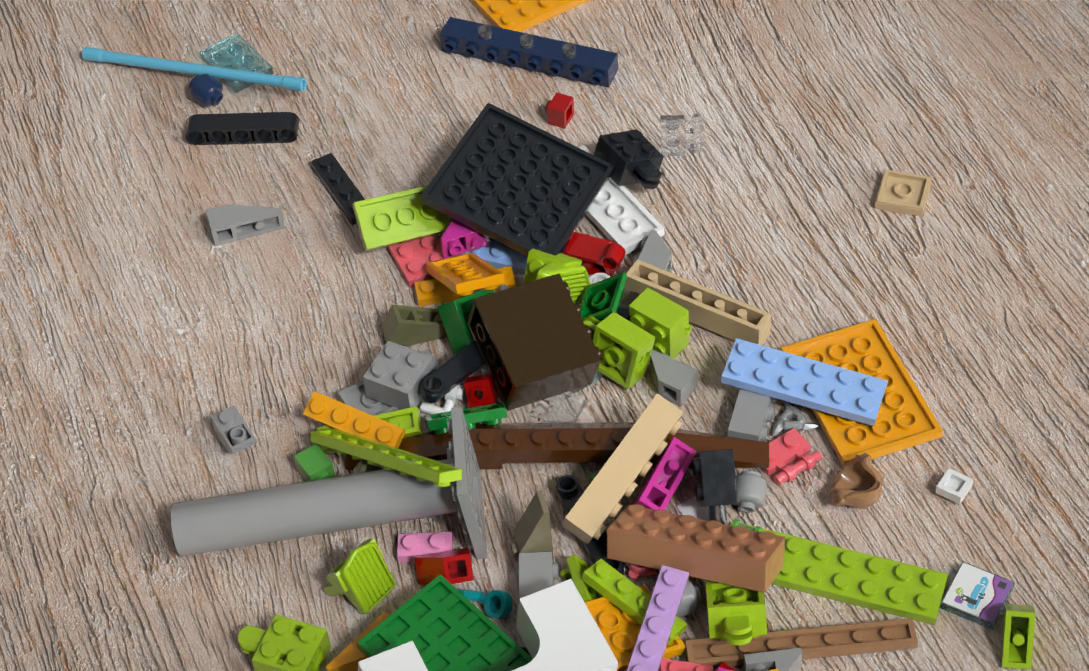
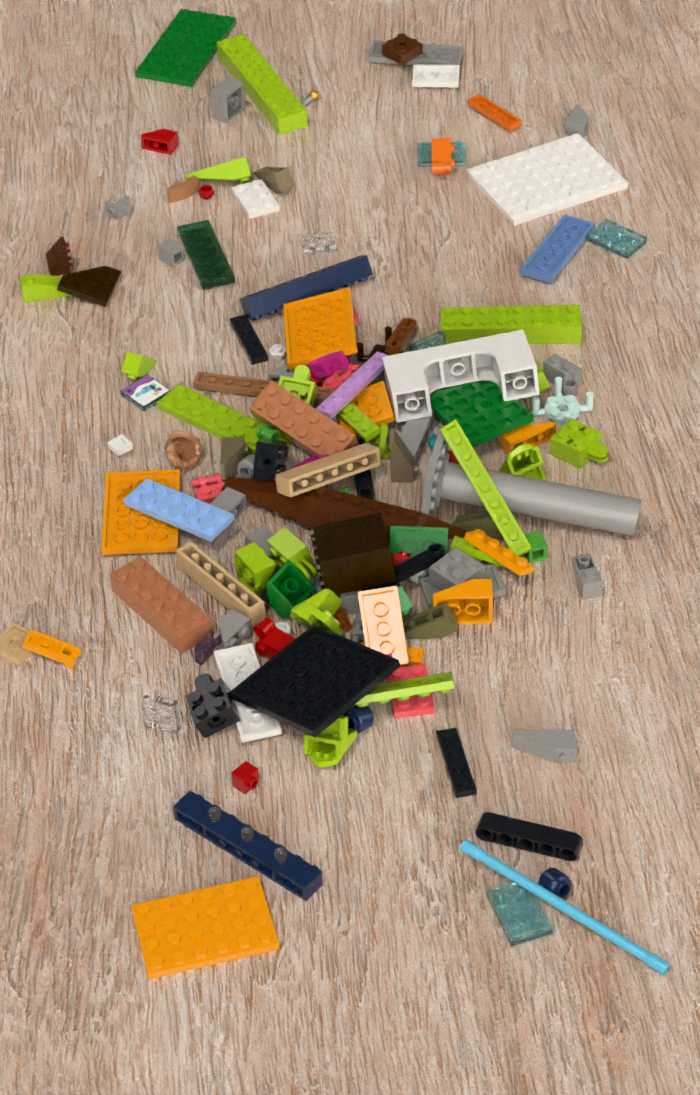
camera: 165 degrees left, 5 degrees down
(365, 342) = (469, 601): none -> light orange slope
(676, 231) = (204, 649): none -> plate
(758, 267) = (161, 604): none -> nougat brick
(783, 503) = (232, 452): none -> dark tan slope
(853, 185) = (52, 648): none -> light orange plate

